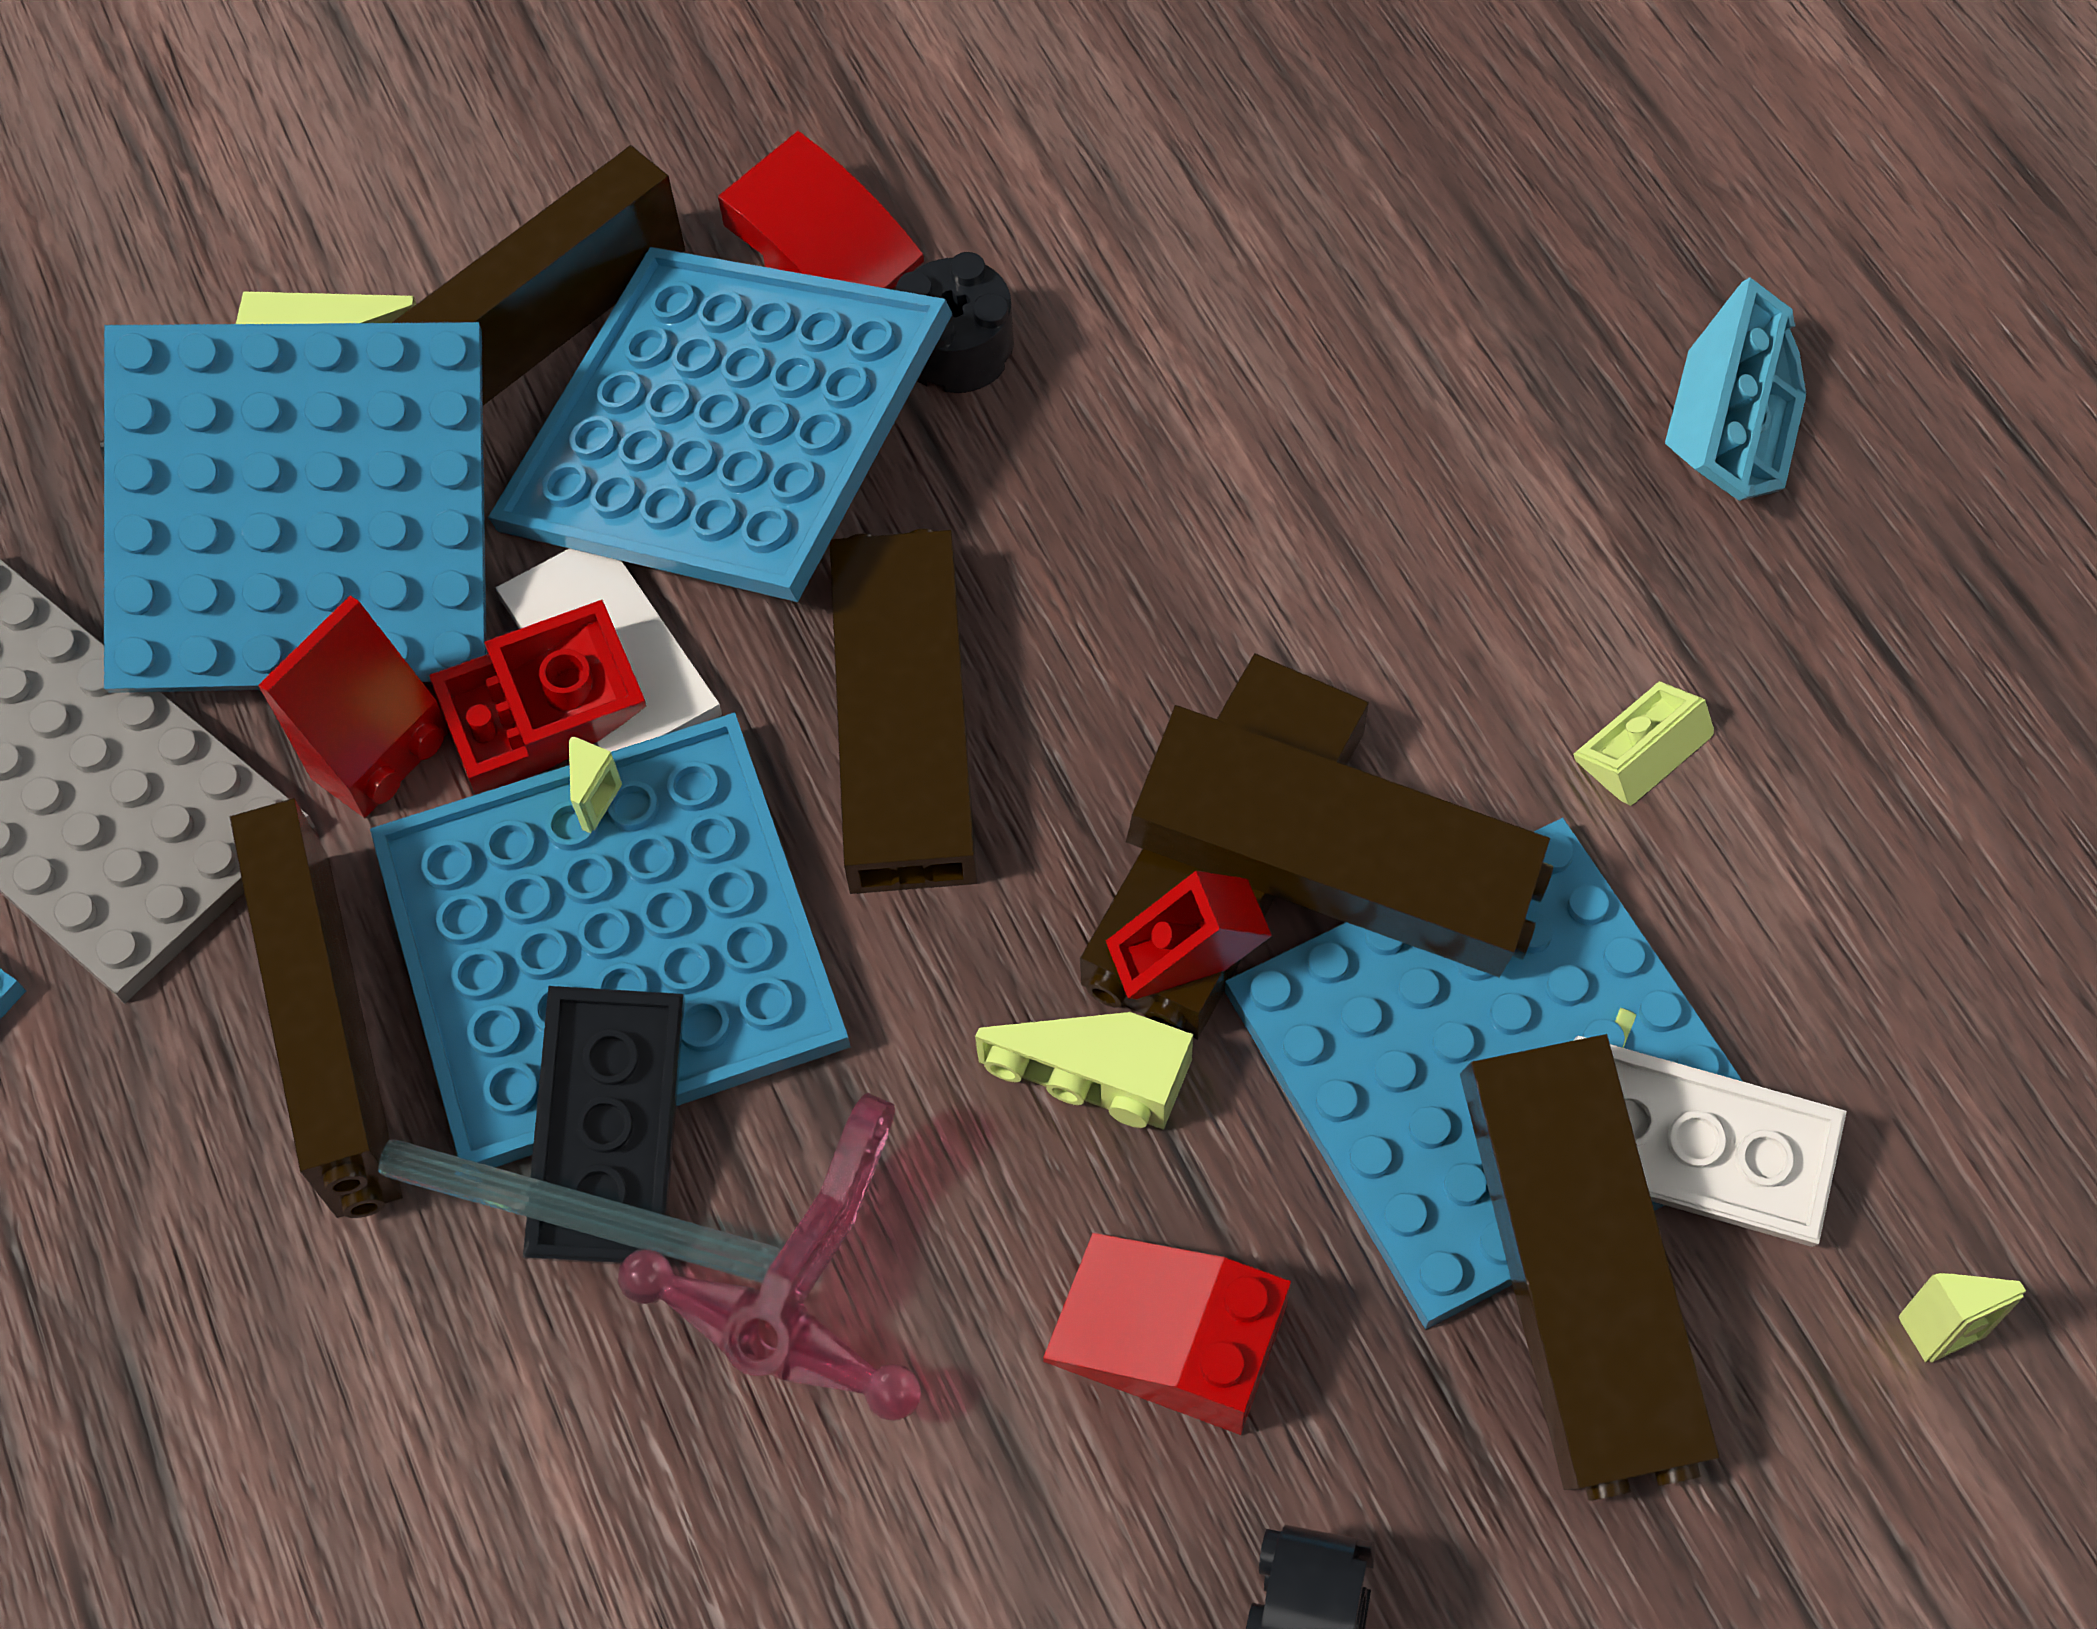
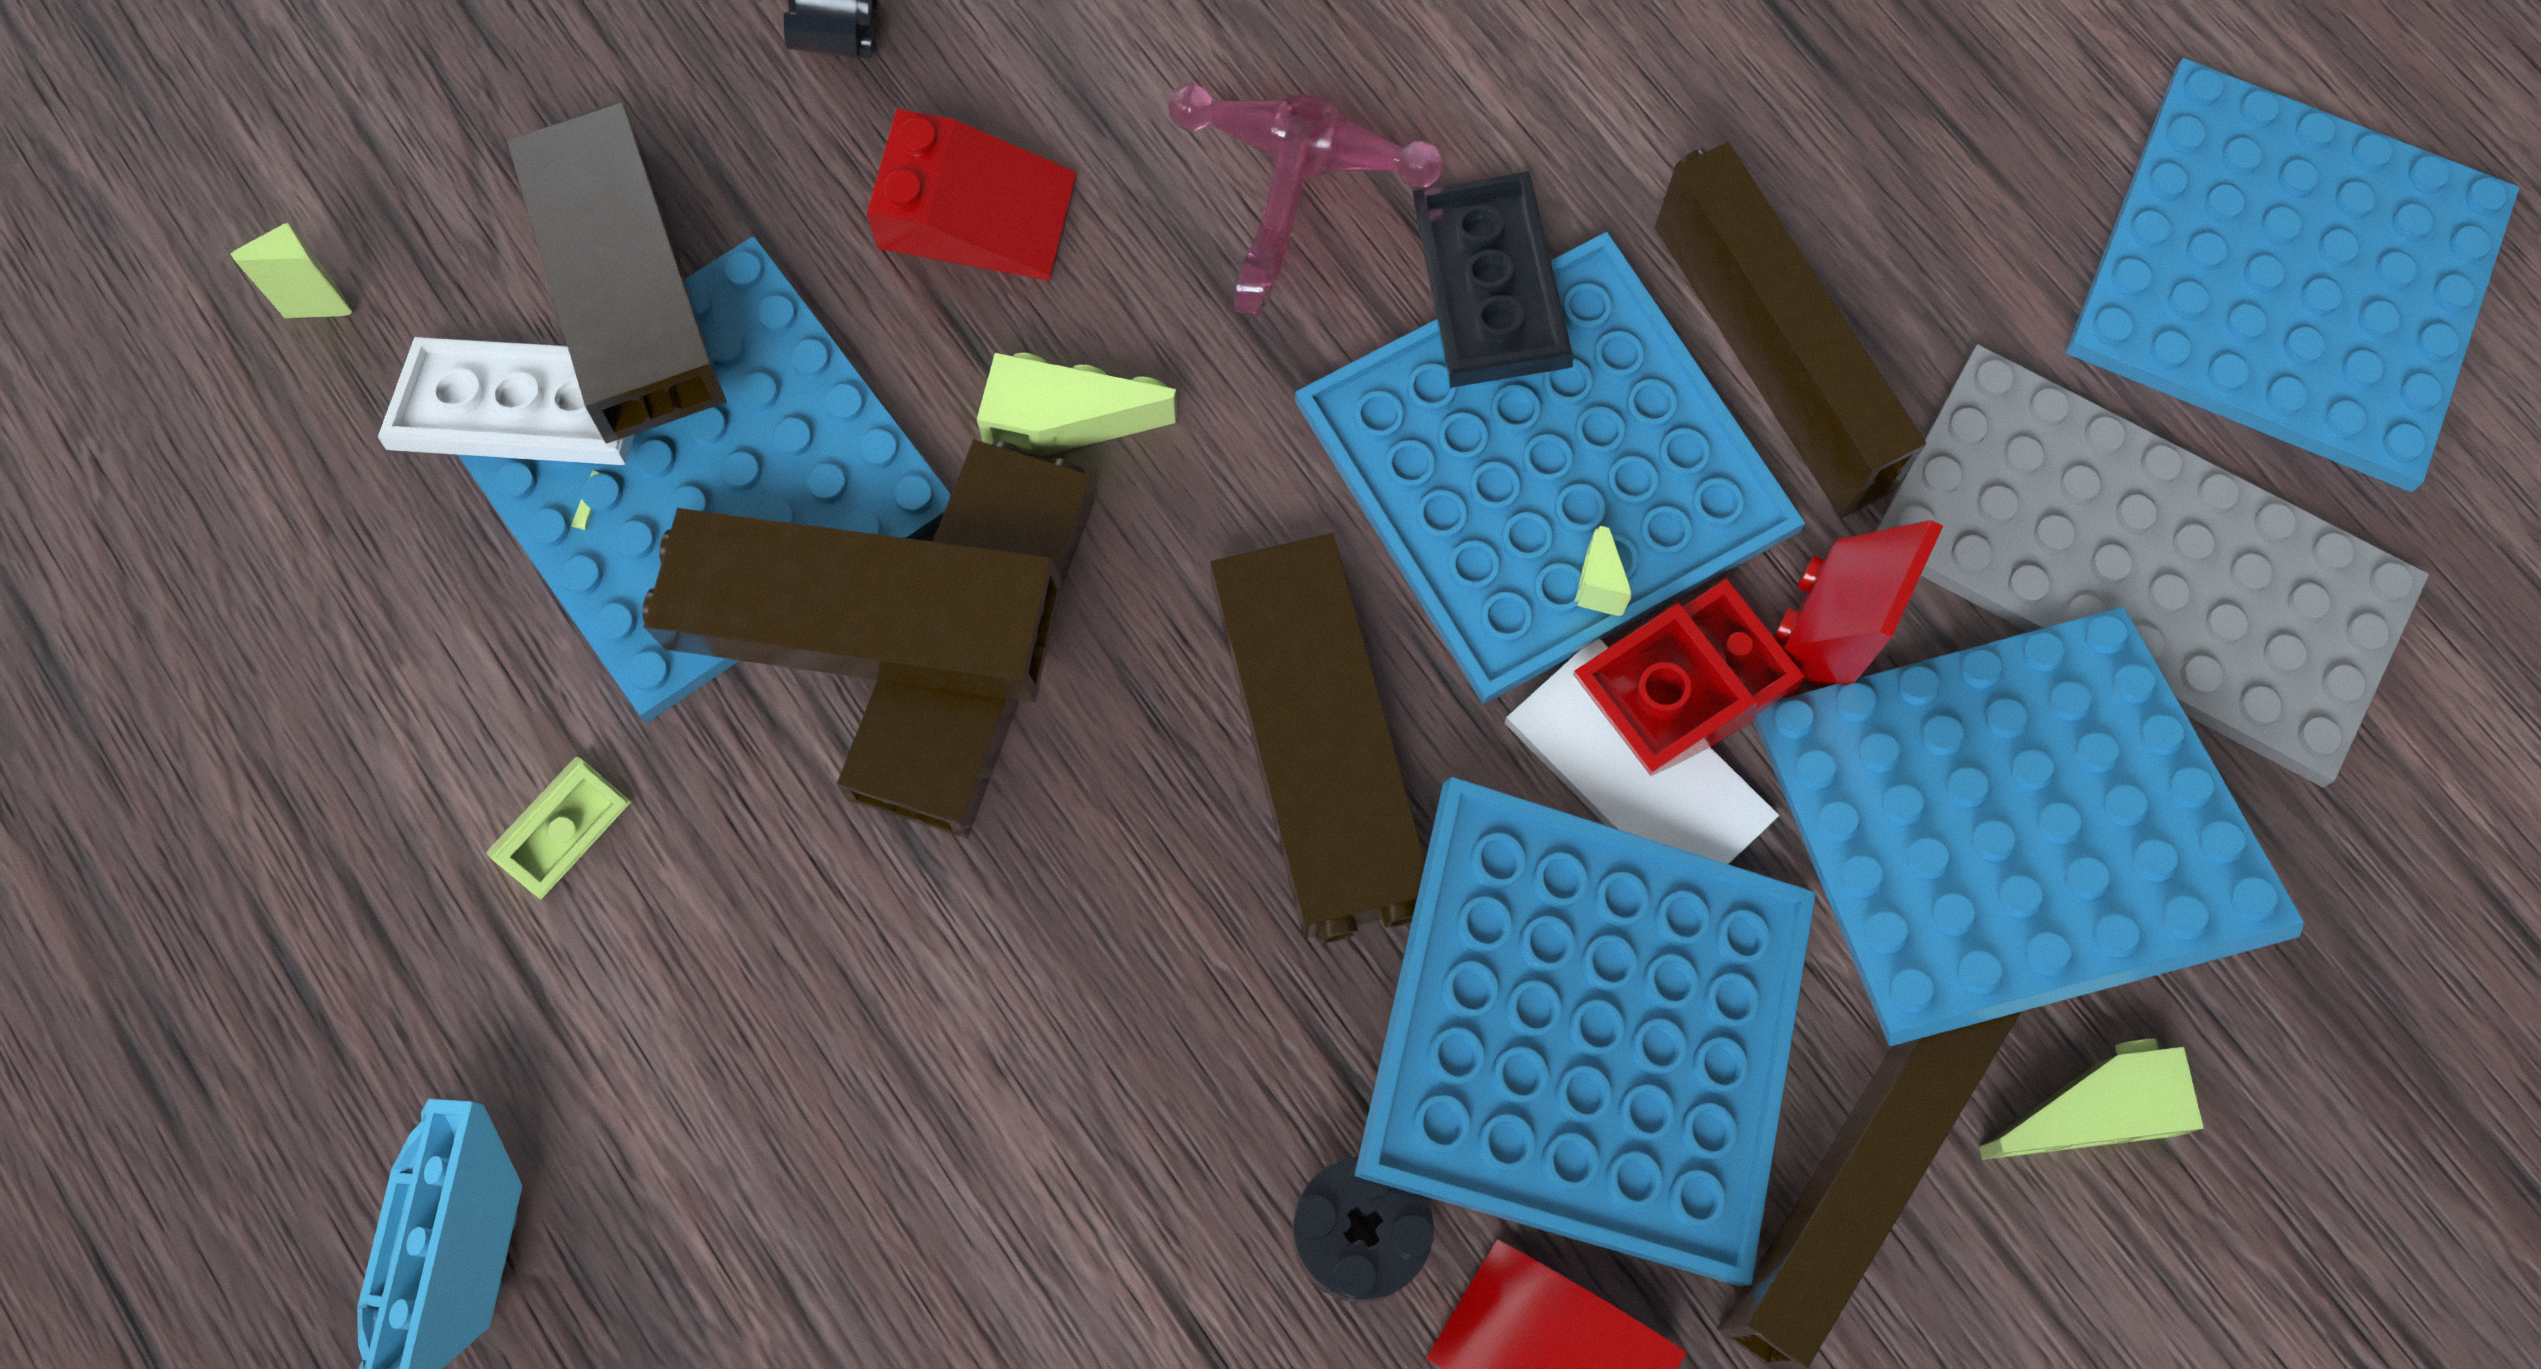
camera: 165 degrees right, 10 degrees up
(576, 1210) = (1490, 195): clear light blue axle -> none
(1188, 934) = (984, 483): red slope -> none

